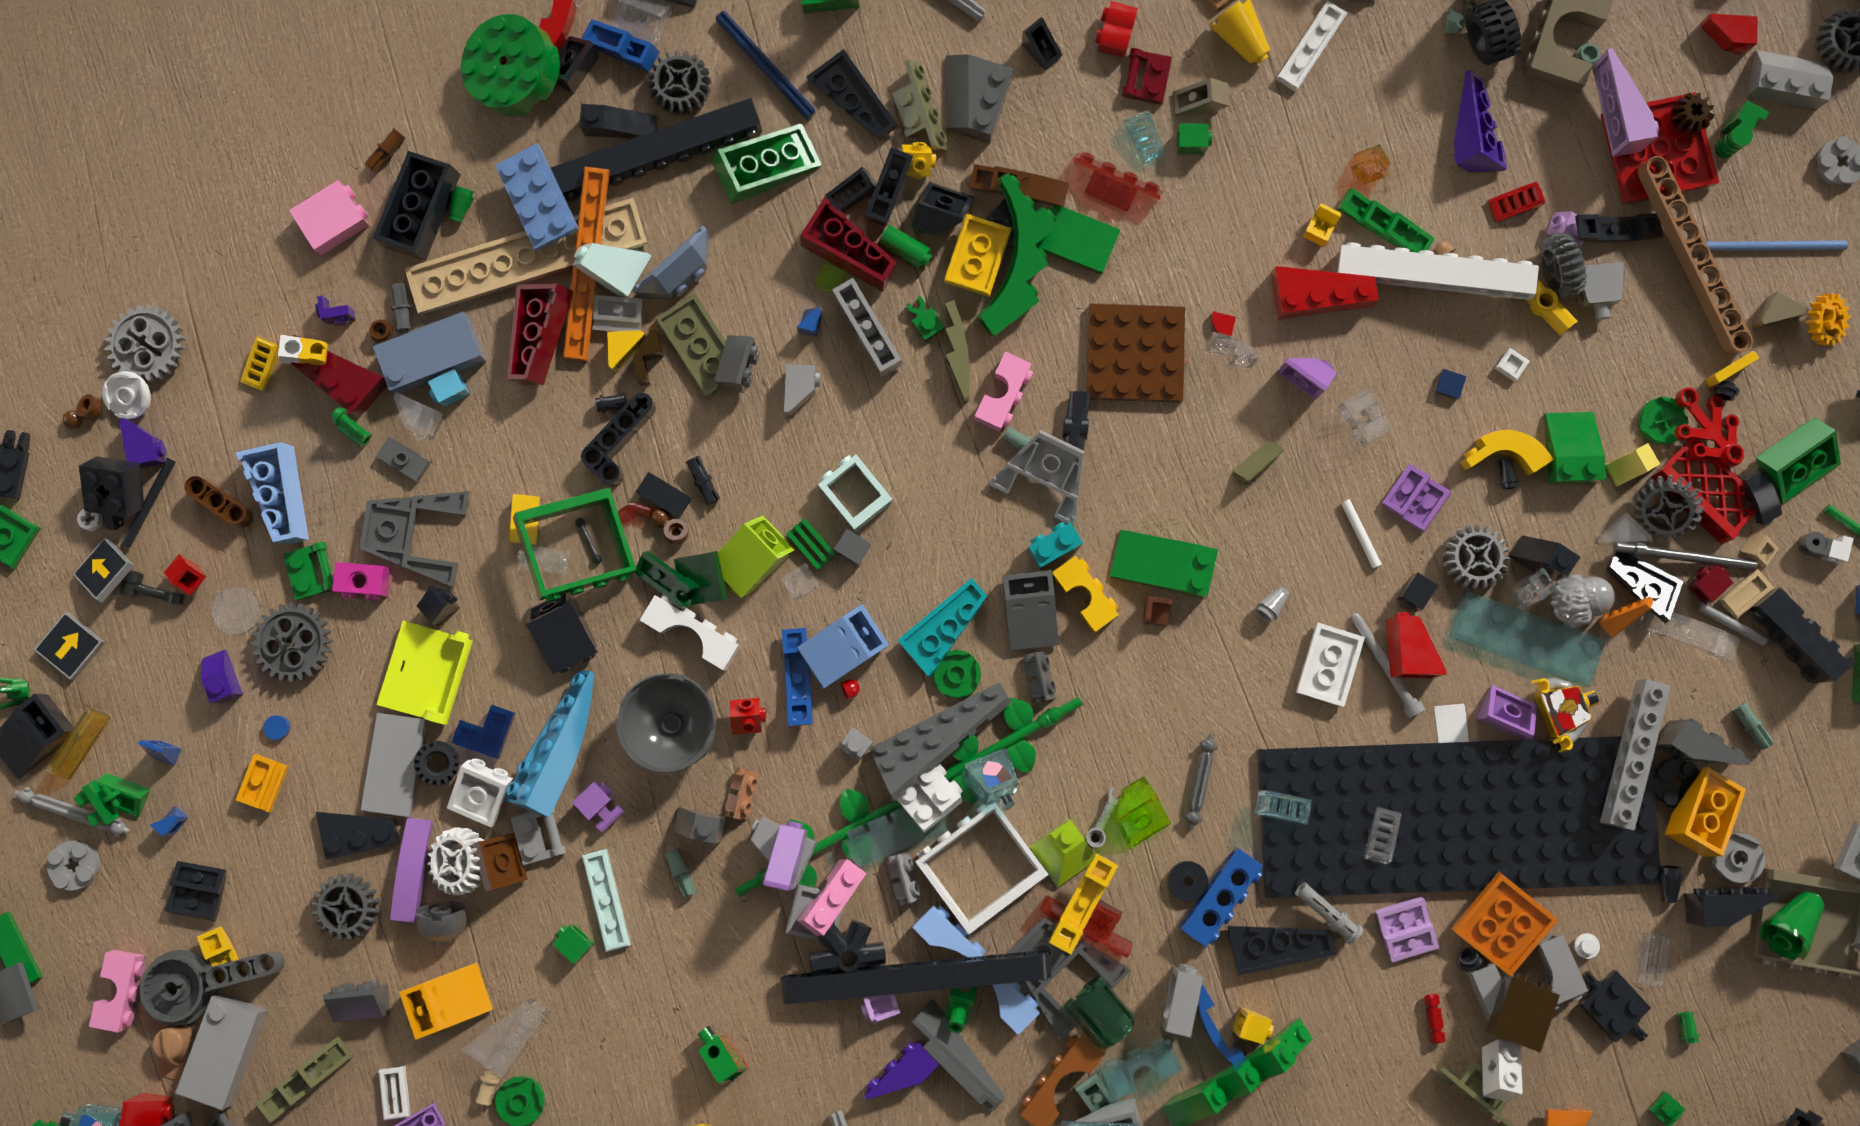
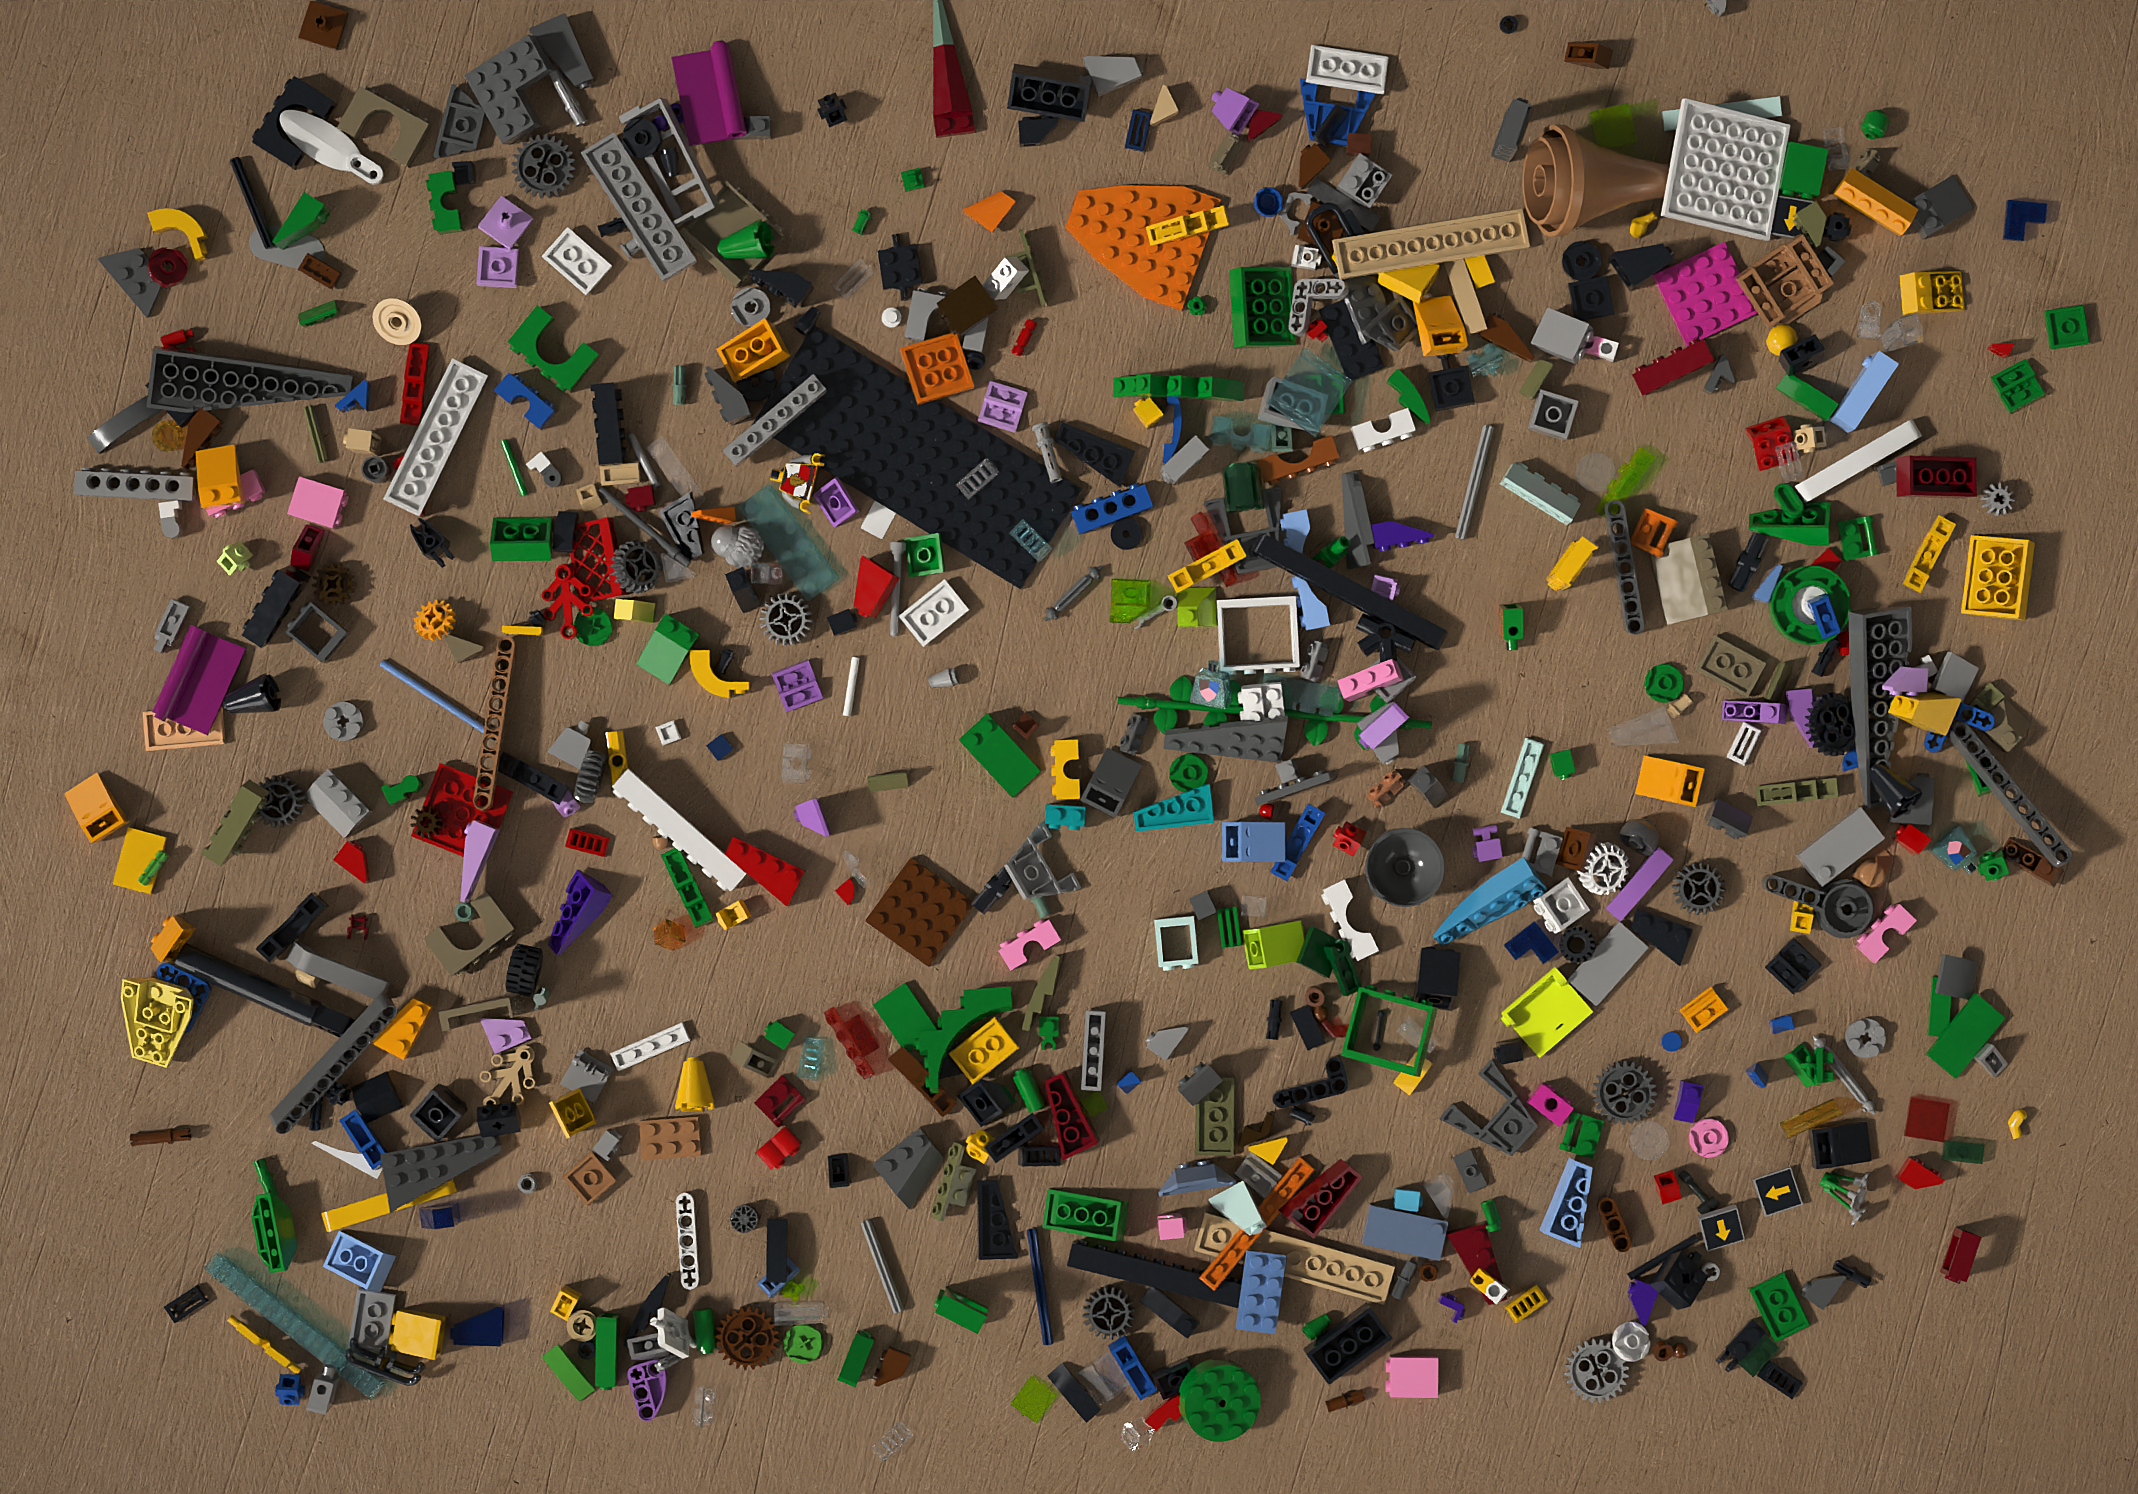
camera: 145 degrees left, 5 degrees up
(176, 654) = (1708, 1137): none -> bright pink tile
(670, 201) = (1171, 1226): none -> bright pink arch
(833, 738) = (1301, 783): none -> dark grey wing
(1380, 718) = (924, 555): none -> green slope

